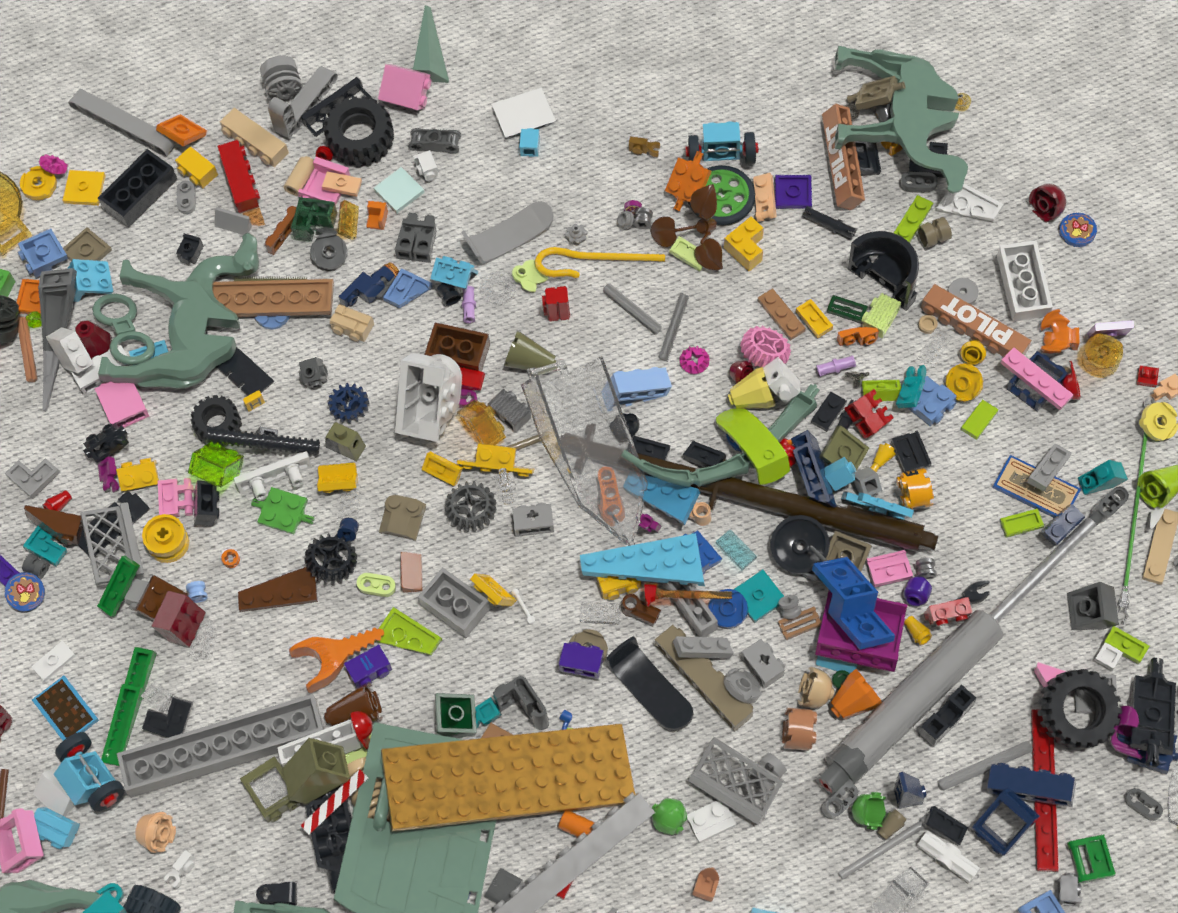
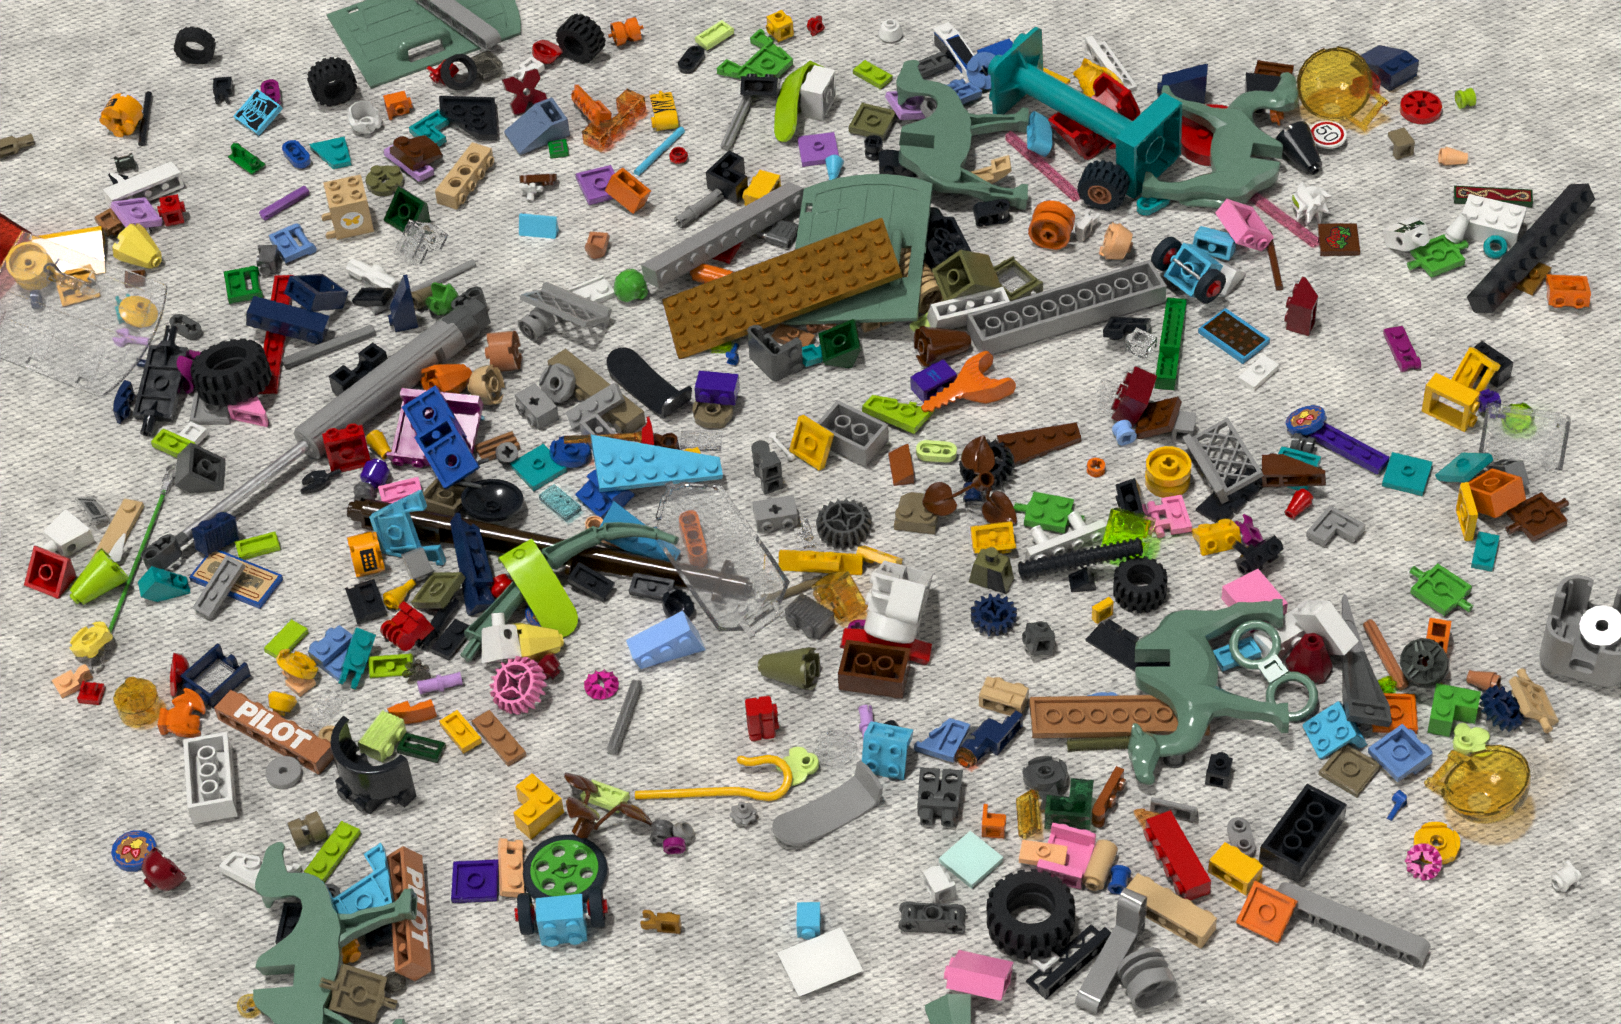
camera: 175 degrees right, 15 degrees down
(55, 220) = (1401, 800): none -> blue hand
(83, 187) = (1376, 844): yellow plate -> none
(118, 586) = (1202, 419): green plate -> none
(216, 856) = (1051, 225): none -> orange wheel
(287, 163) = (1119, 879): none -> blue bush
(324, 153) = (1077, 893): red plate -> none
(334, 801) = (959, 244): sticker -> none
(335, 508) = (980, 458): none -> reddish brown plant
(362, 726) = (929, 314): red cap -> none
(536, 563) = (767, 467): none -> dark grey legs
(632, 308) = (674, 734): light grey axle -> none
(647, 523) = (649, 510): magenta plate -> none
(686, 179) = (604, 867): orange plate -> none
(829, 222) = (426, 838): black pin -> none
(840, 473) = (444, 561): medium azure brick -> none
(881, 159) = (372, 890): none -> medium azure wing
(1037, 378) = (216, 663): bright pink plate -> none
(1112, 328) = (122, 722): plate -> none

